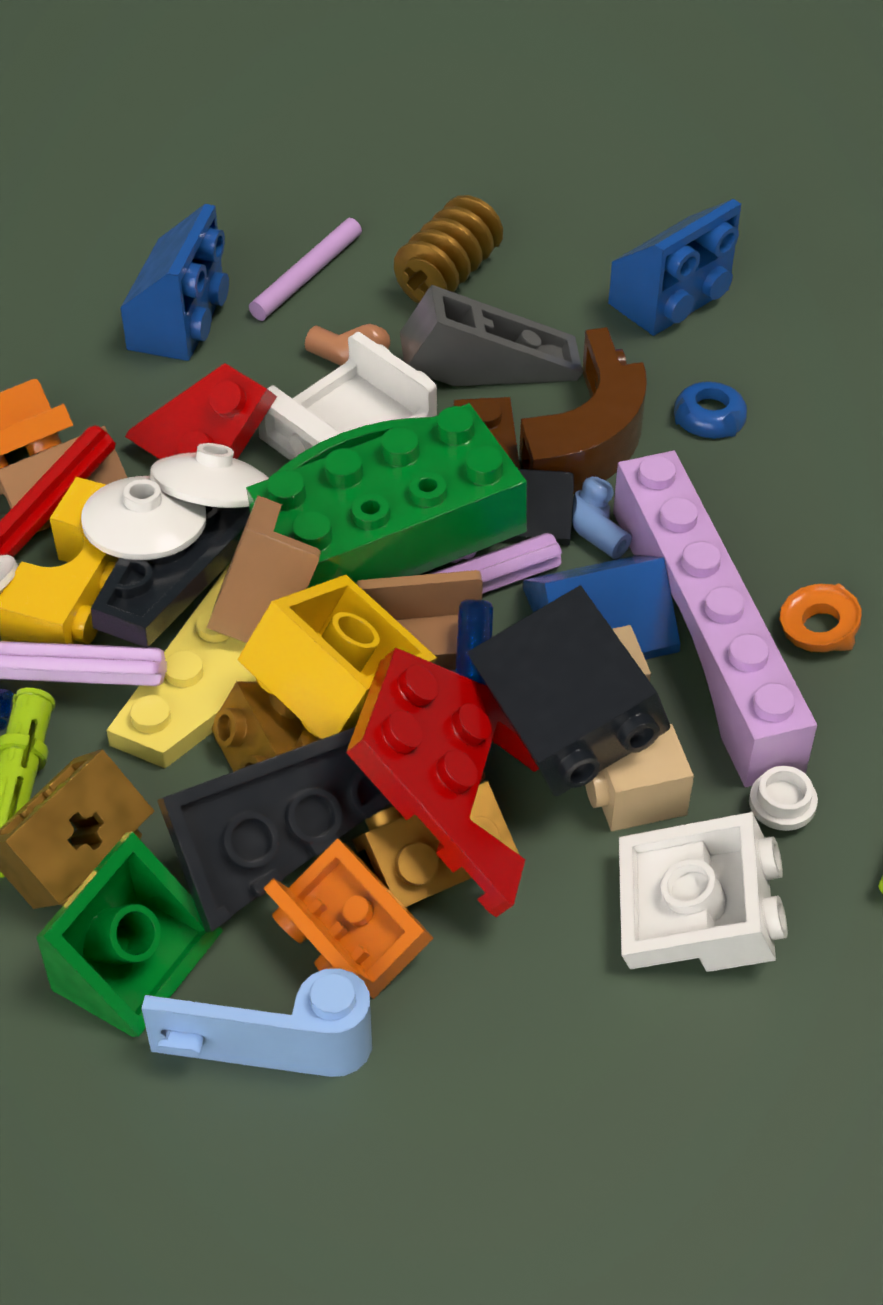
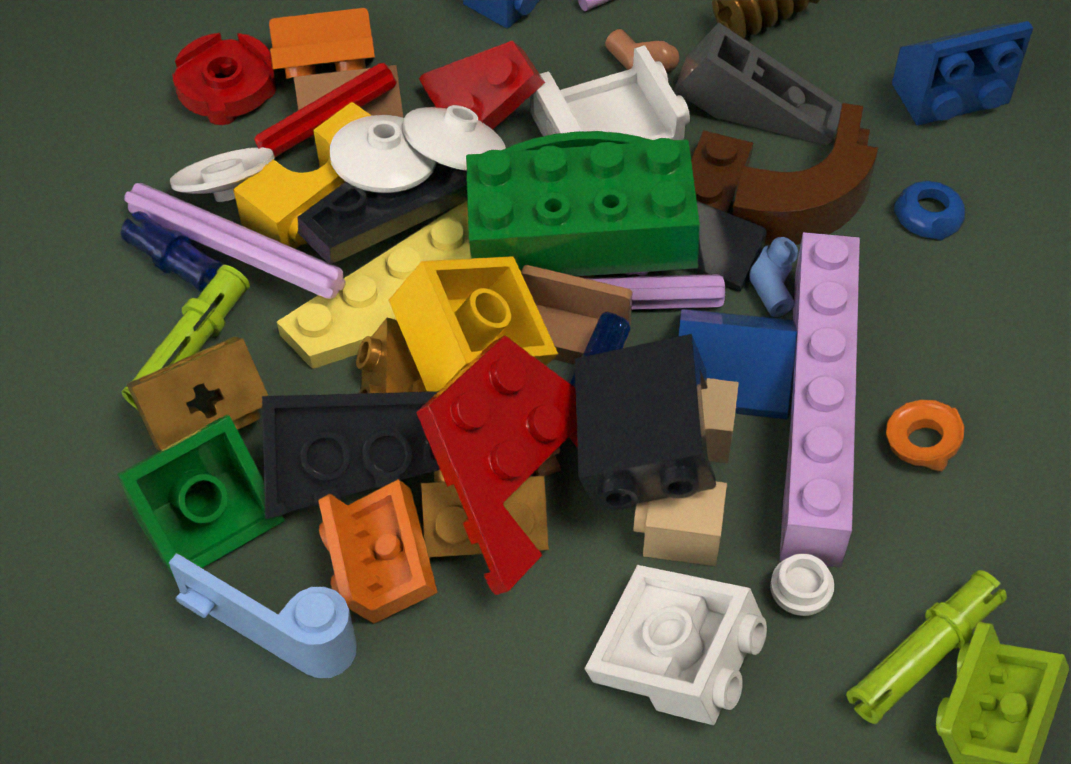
camera: 25 degrees right, 5 degrees up
(261, 571) = (442, 226): medium nougat panel -> none

